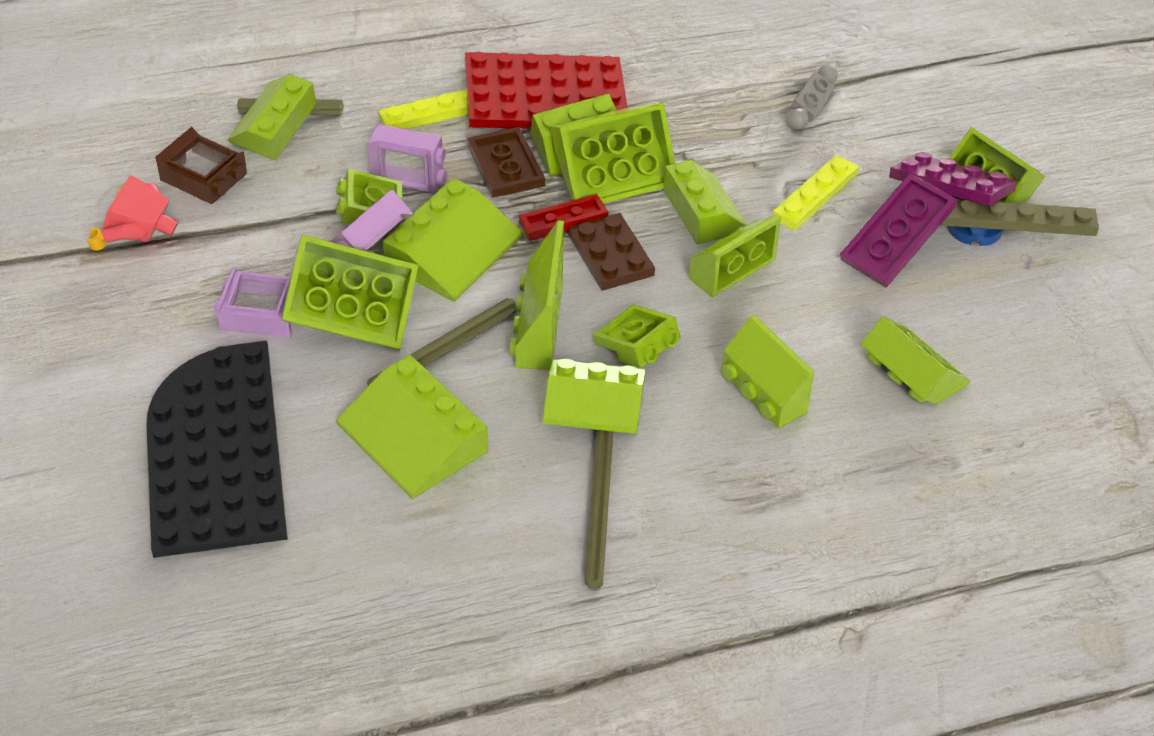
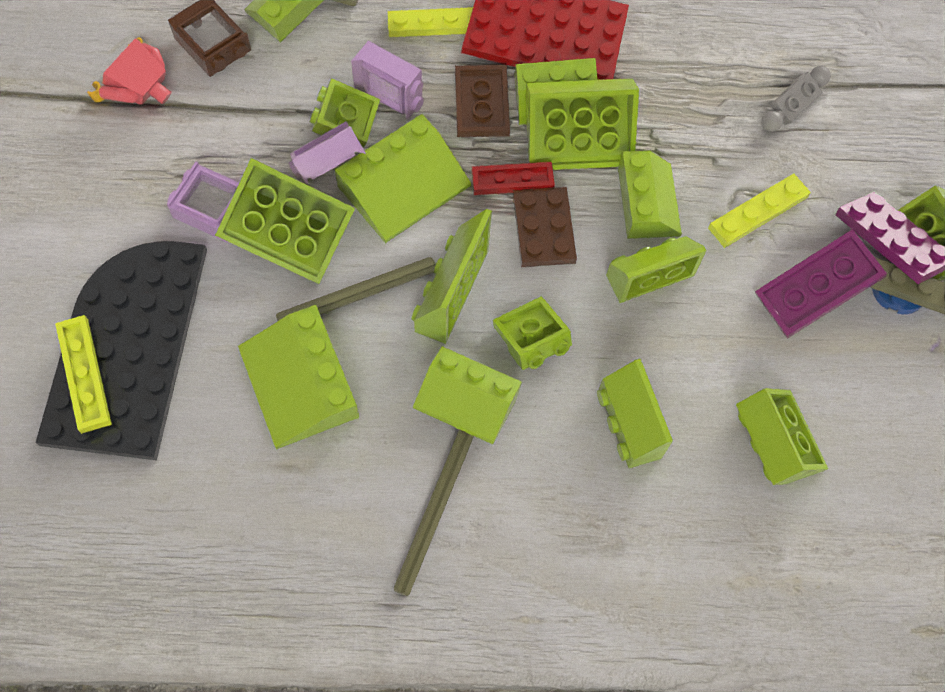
camera: 15 degrees right, 20 degrees up
(185, 471) = (83, 374): none -> neon yellow plate

